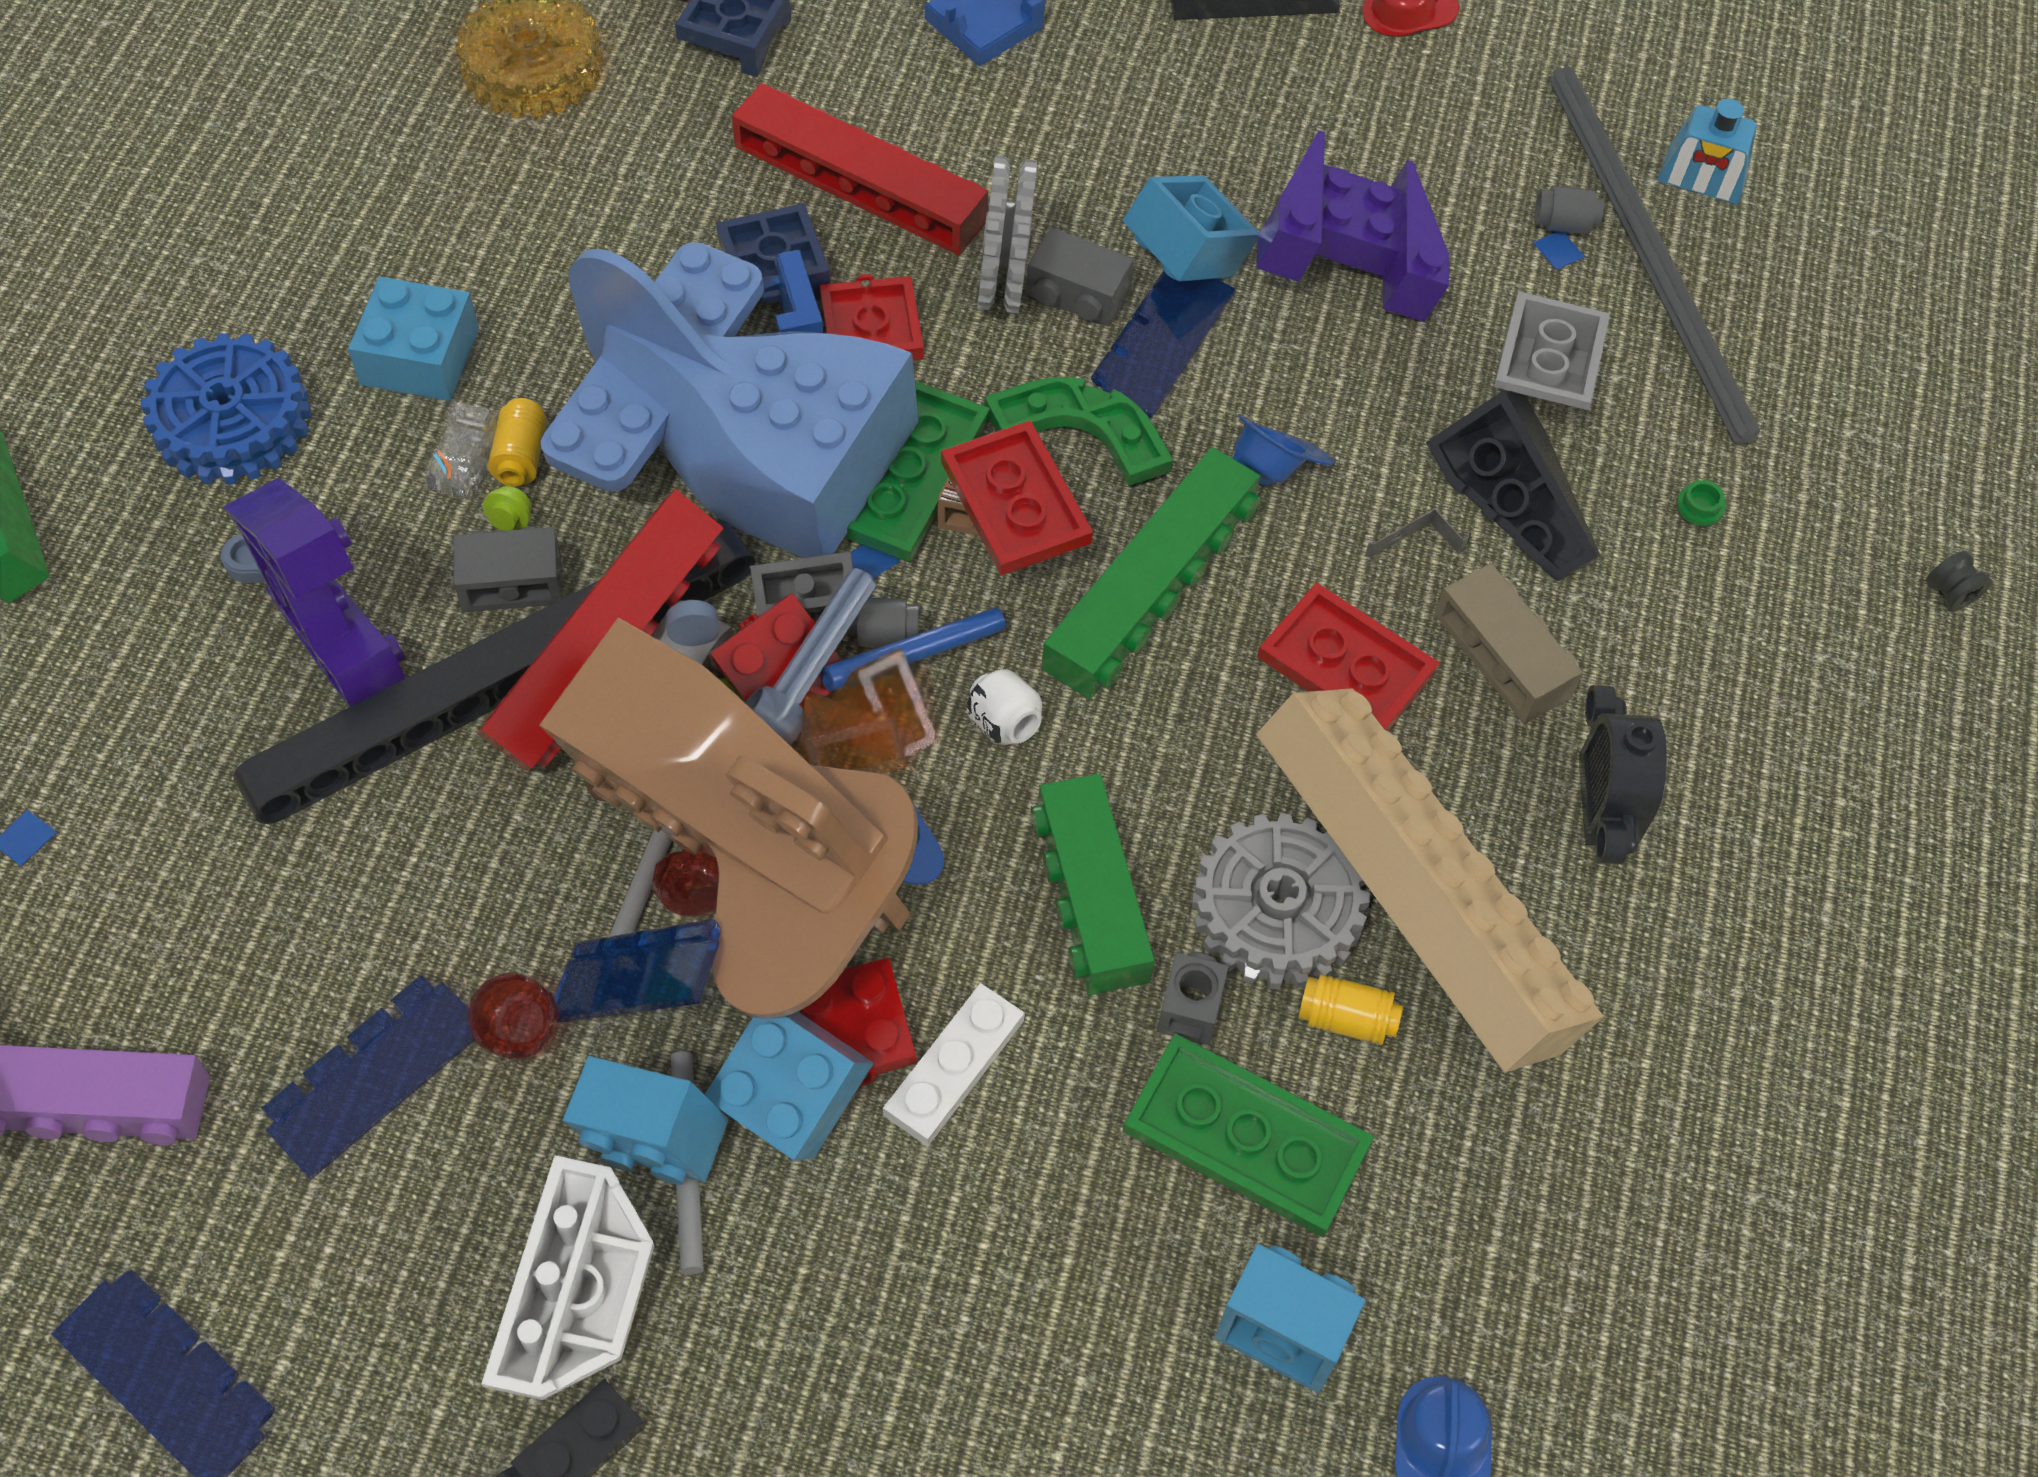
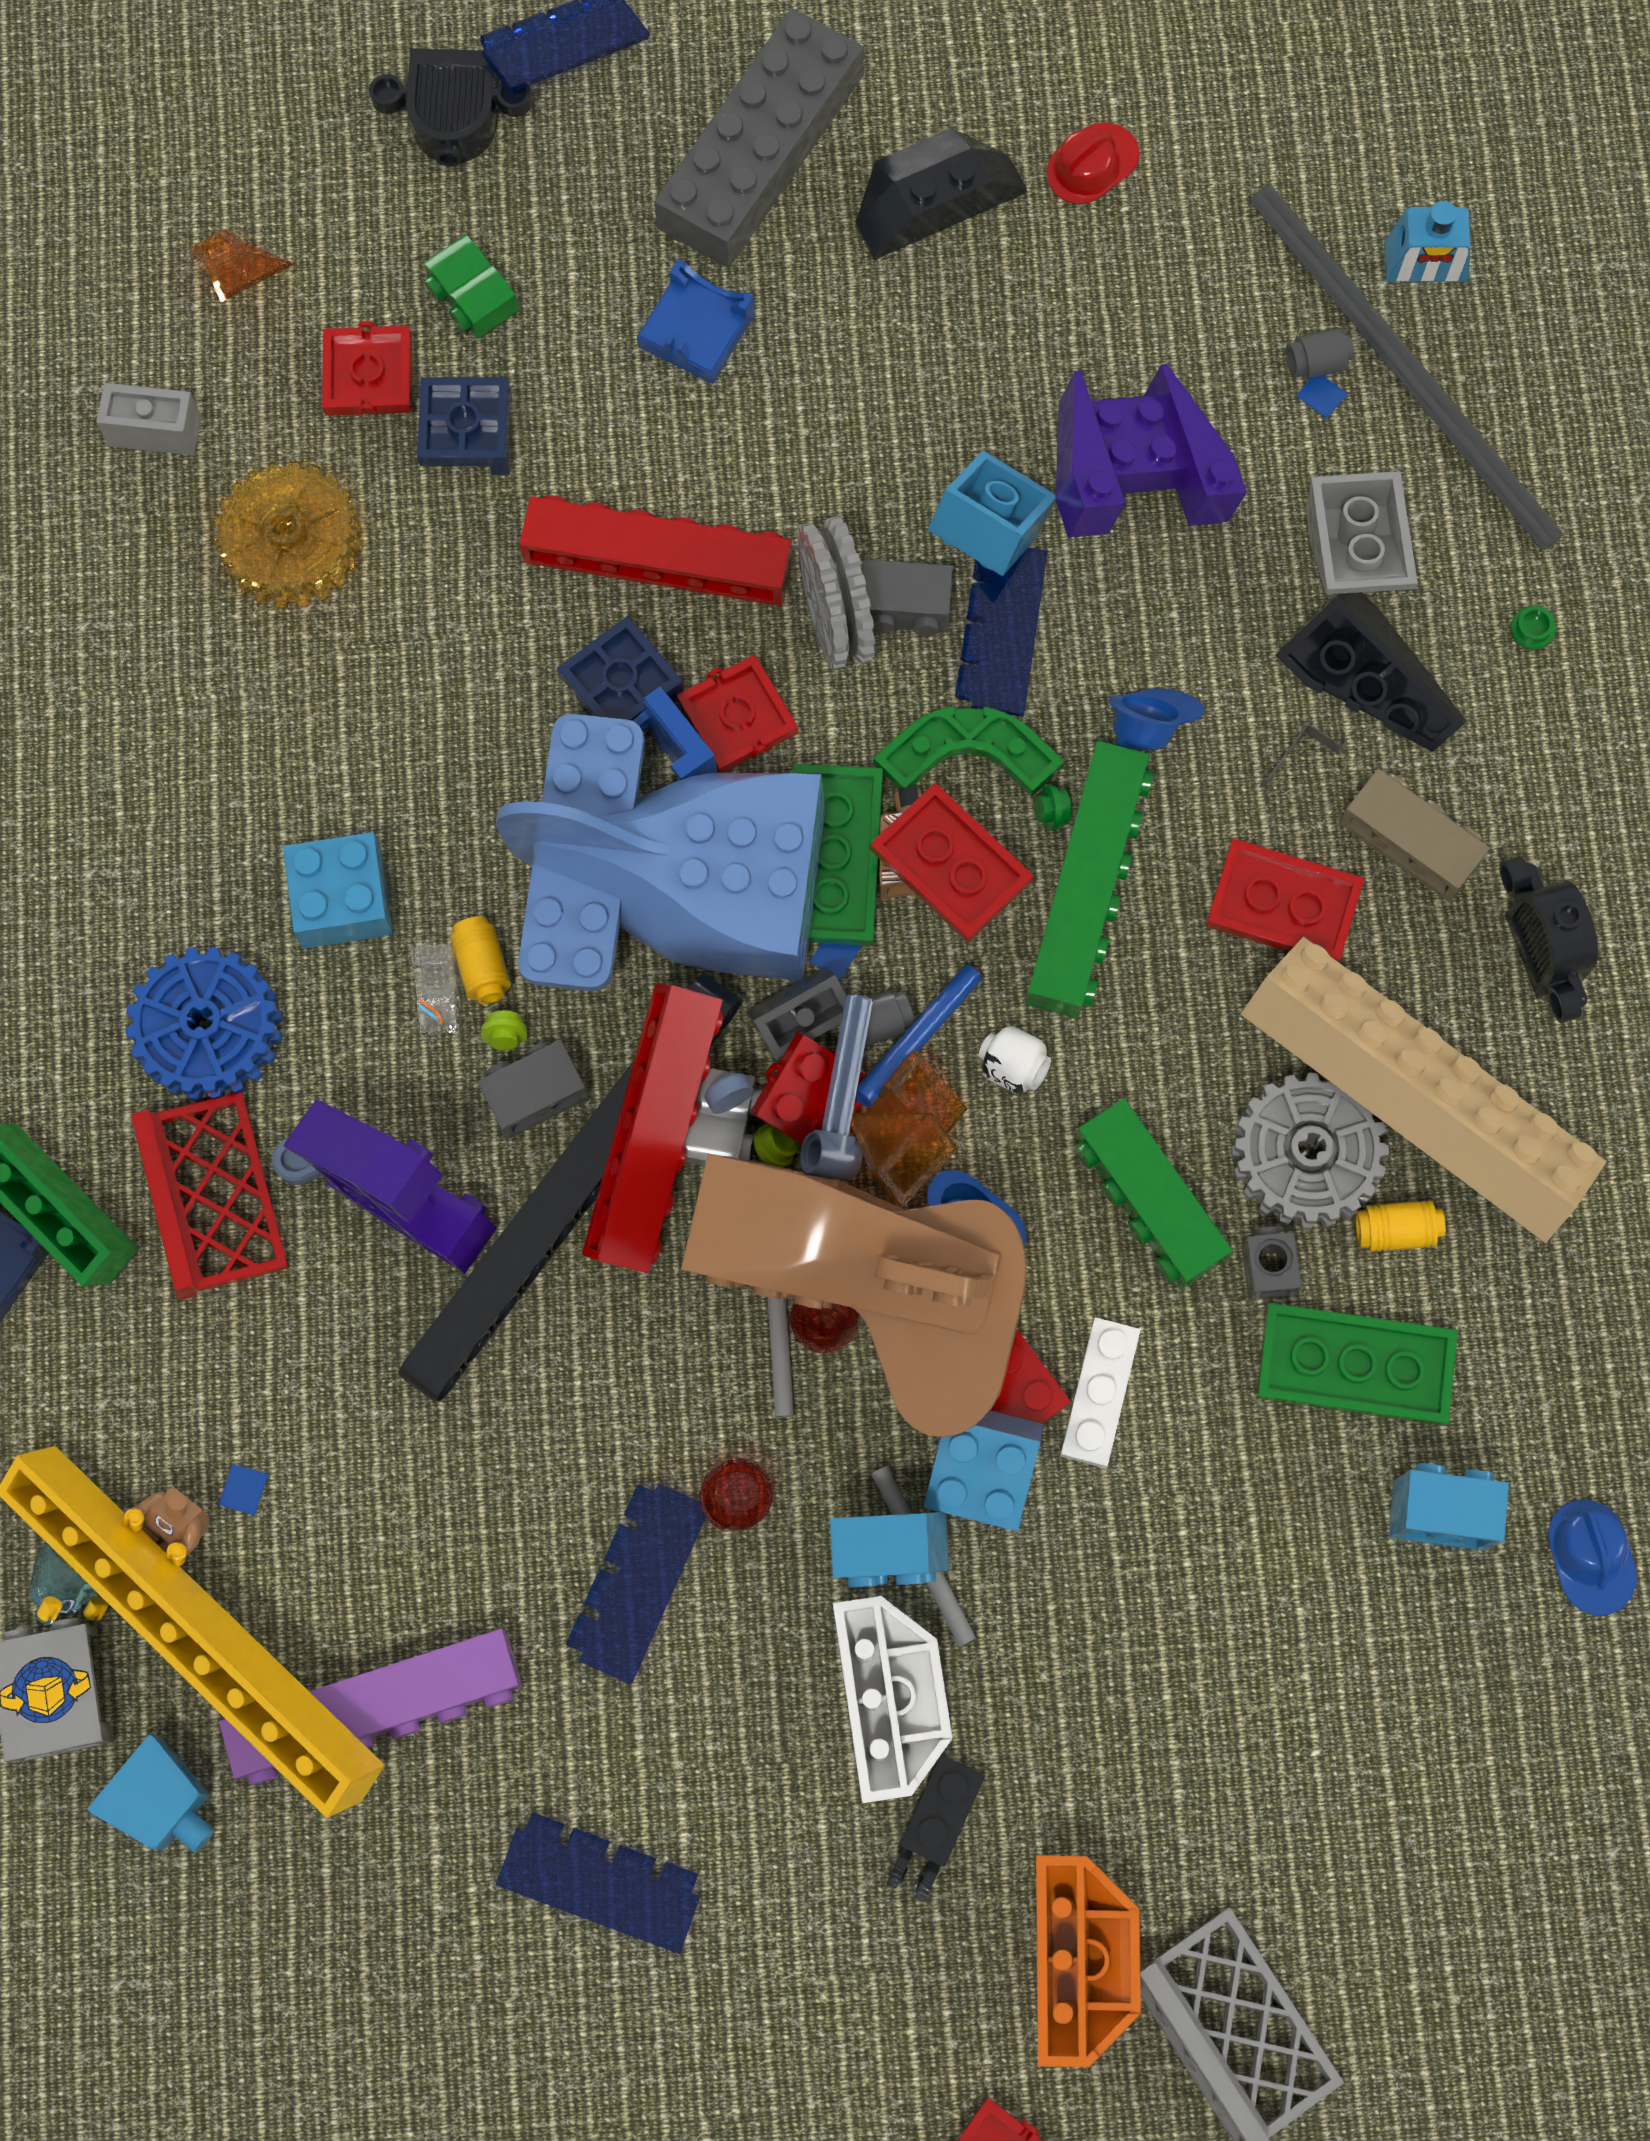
camera: 15 degrees left, 15 degrees up
(99, 554) = (168, 1202): none -> red fence
(638, 971) = (827, 1425): clear blue windscreen -> none
(1144, 498) = (1053, 807): none -> green plate

